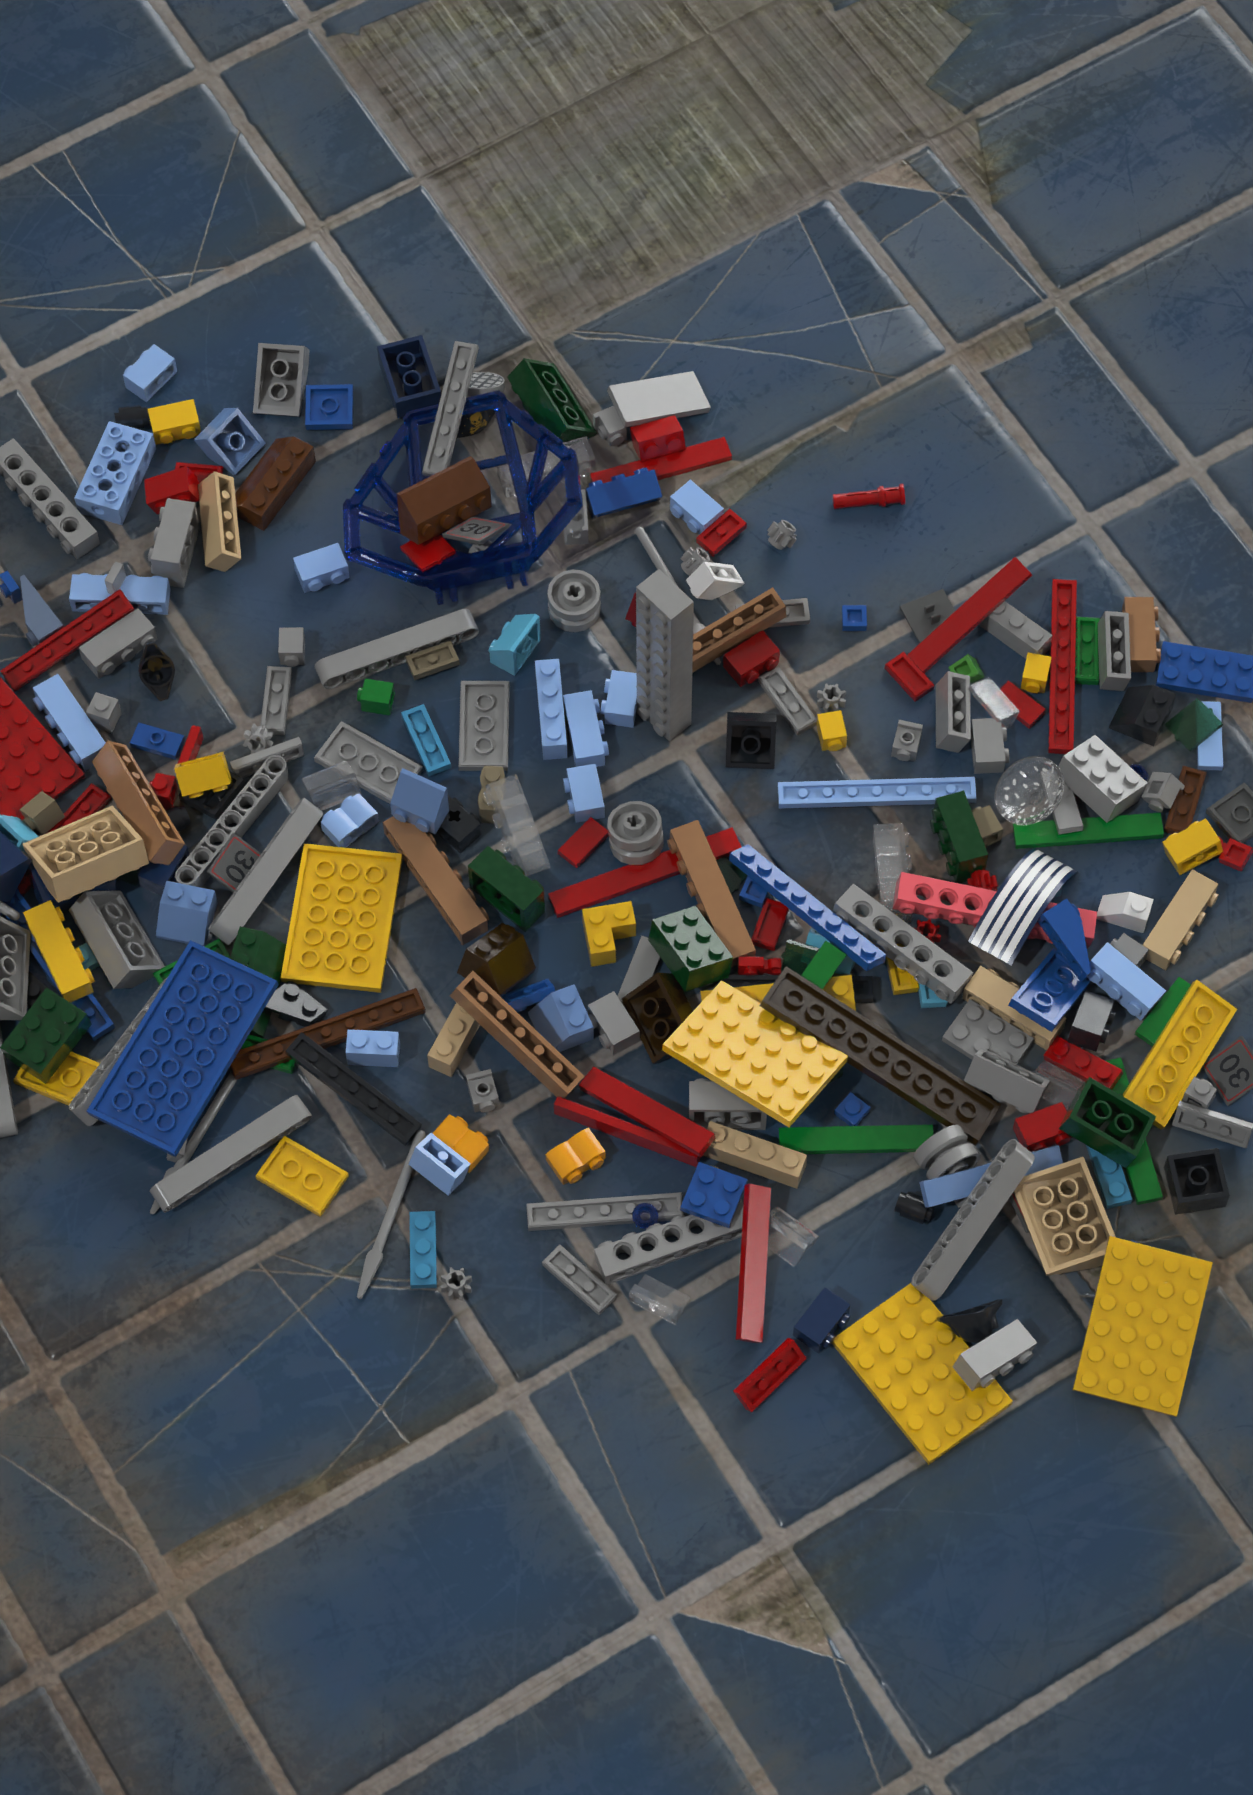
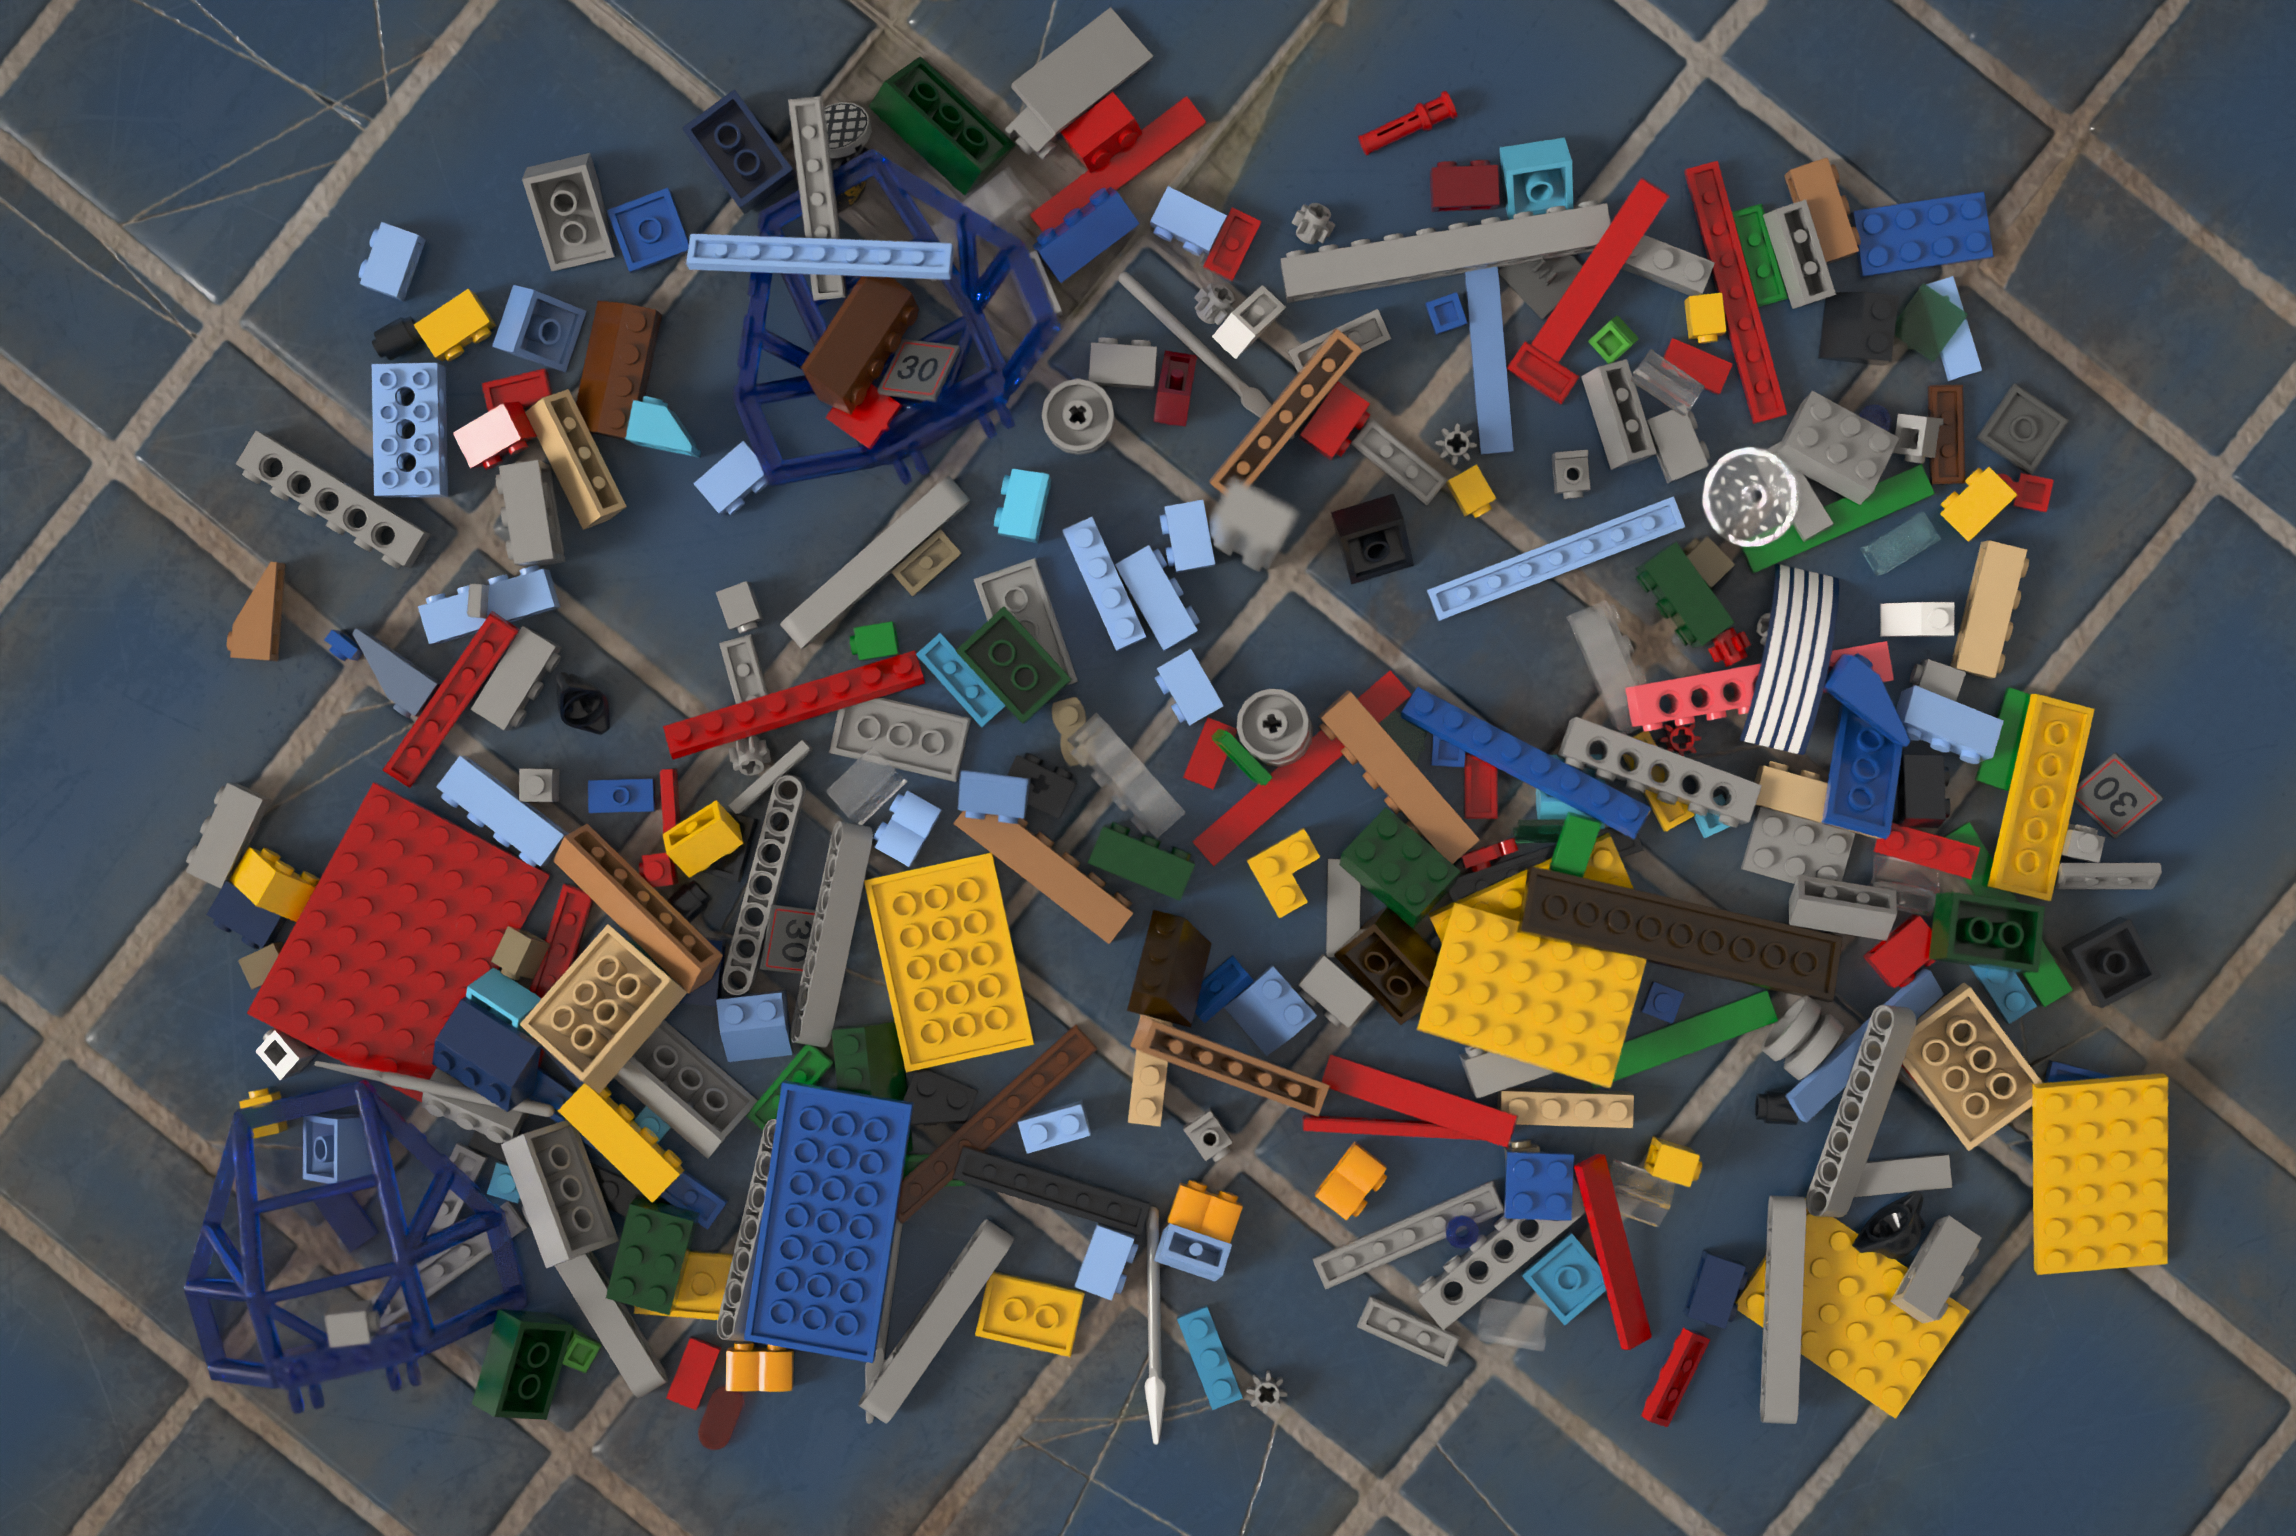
camera: 20 degrees left, 25 degrees up
(38, 1136) = (693, 1373): none -> red tile
(44, 1174) = (720, 1418): none -> clear red tile
(88, 1145) = (759, 1368): none -> light orange brick
(282, 519) = (659, 428): none -> medium azure slope
(302, 715) = (793, 705): none -> red plate
(373, 1153) = (1105, 1261): none -> light blue brick
(437, 440) = (820, 256): none -> light blue plate
(467, 733) = (1013, 665): none -> dark green brick
(604, 845) = (1241, 757): none -> green tile
(617, 579) = (1123, 364): none -> light grey brick
(711, 1277) = (1566, 1278): none -> dark azure plate
(820, 1212) = (1672, 1162): none -> yellow brick
(860, 578) = (1443, 252): none -> light grey brick
(867, 1345) = (1783, 1309): none -> light grey beam
(874, 654) = (1489, 361): none -> medium blue tile
(894, 545) = (1464, 186): none -> dark red brick
(946, 556) = (1536, 176): none -> medium azure slope
(991, 1287) = (1905, 1175): none -> light grey tile
(1128, 856) = (1900, 543): none -> clear light blue brick

